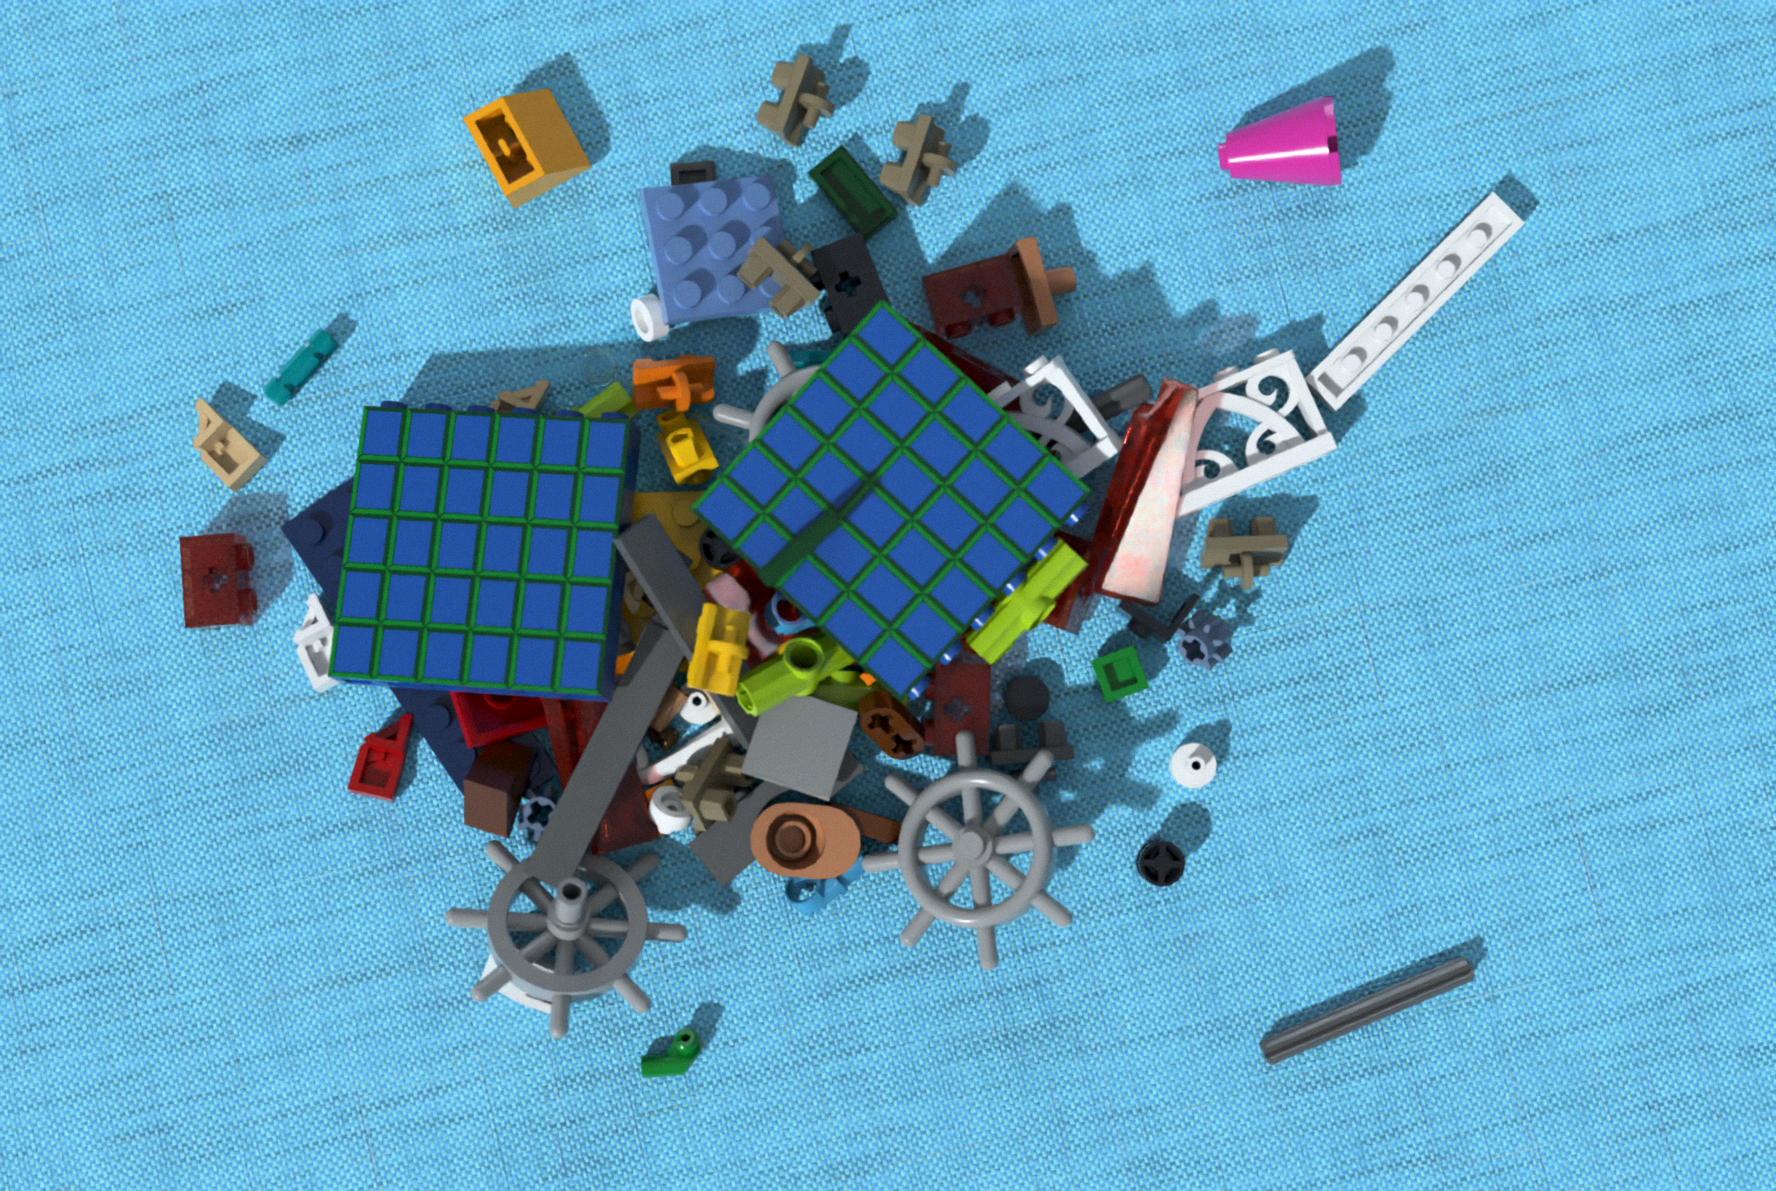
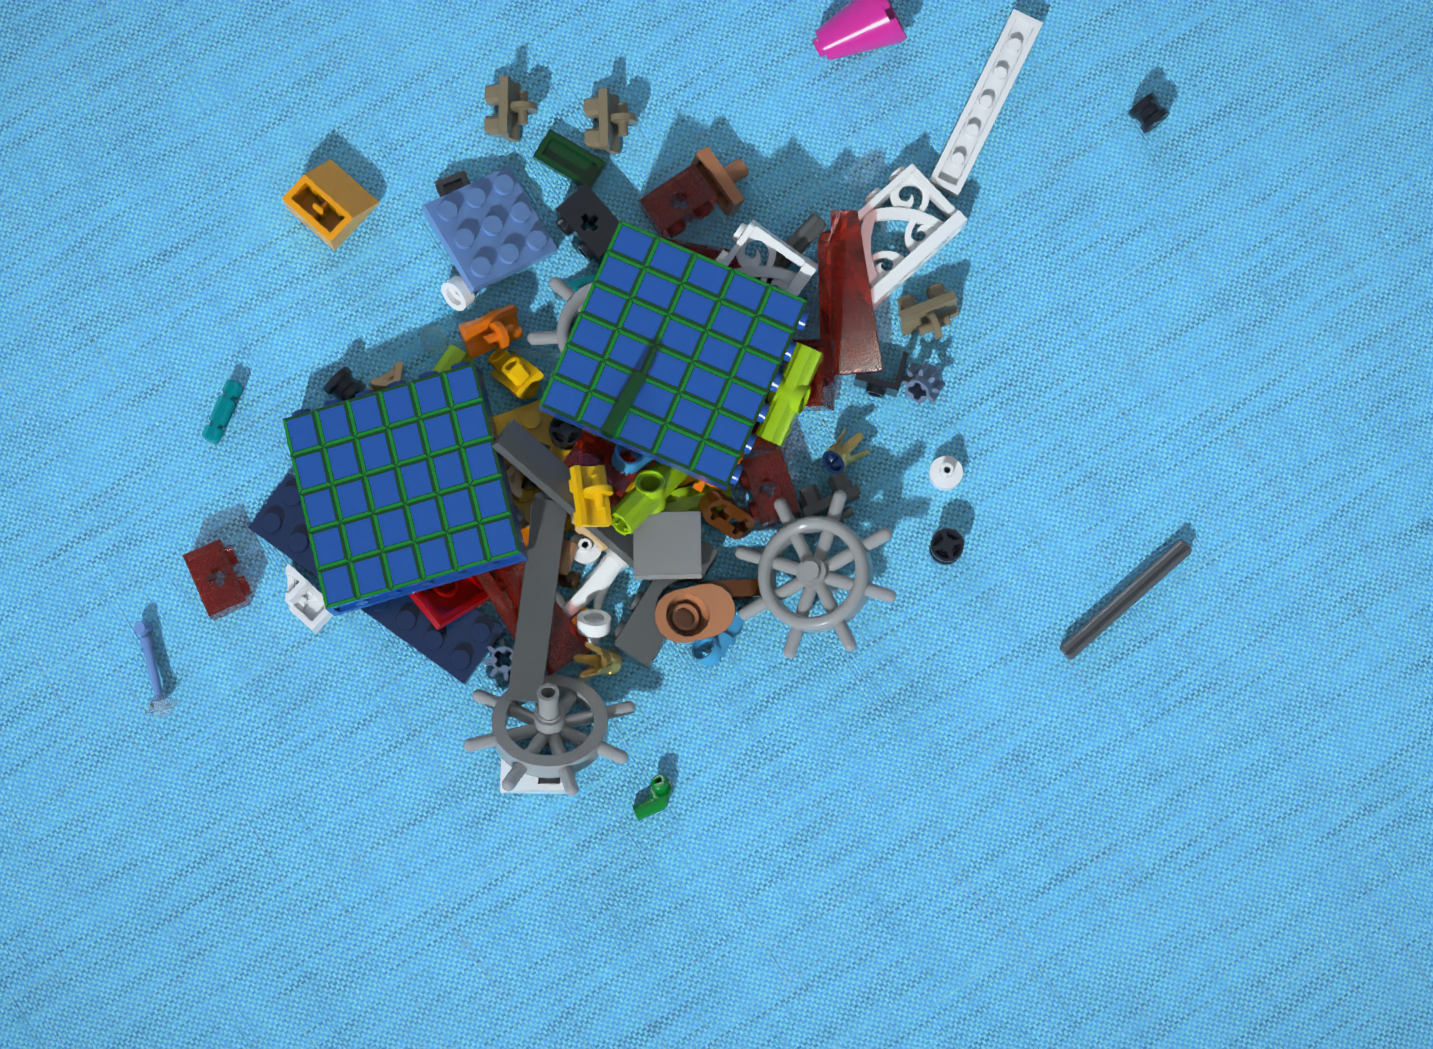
camera: 20 degrees left, 5 degrees down
(92, 717) = (160, 705): none -> medium blue piece
(225, 448) = (188, 486): tan slope -> none
(382, 761) = (376, 665): red slope -> none
(463, 388) = (343, 385): none -> black wheel
(496, 787) = (466, 651): reddish brown slope -> none
(671, 858) = (604, 661): none -> pearl gold piece
(709, 785) = (616, 596): dark tan hips -> none
(767, 261) = (544, 226): dark tan hips -> none
(1026, 698) = (811, 467): black tile -> none
(1062, 700) = (838, 455): none -> pearl gold piece
(1119, 674) = (873, 426): green plate -> none
(1620, 387) = (1149, 113): none -> black wheel

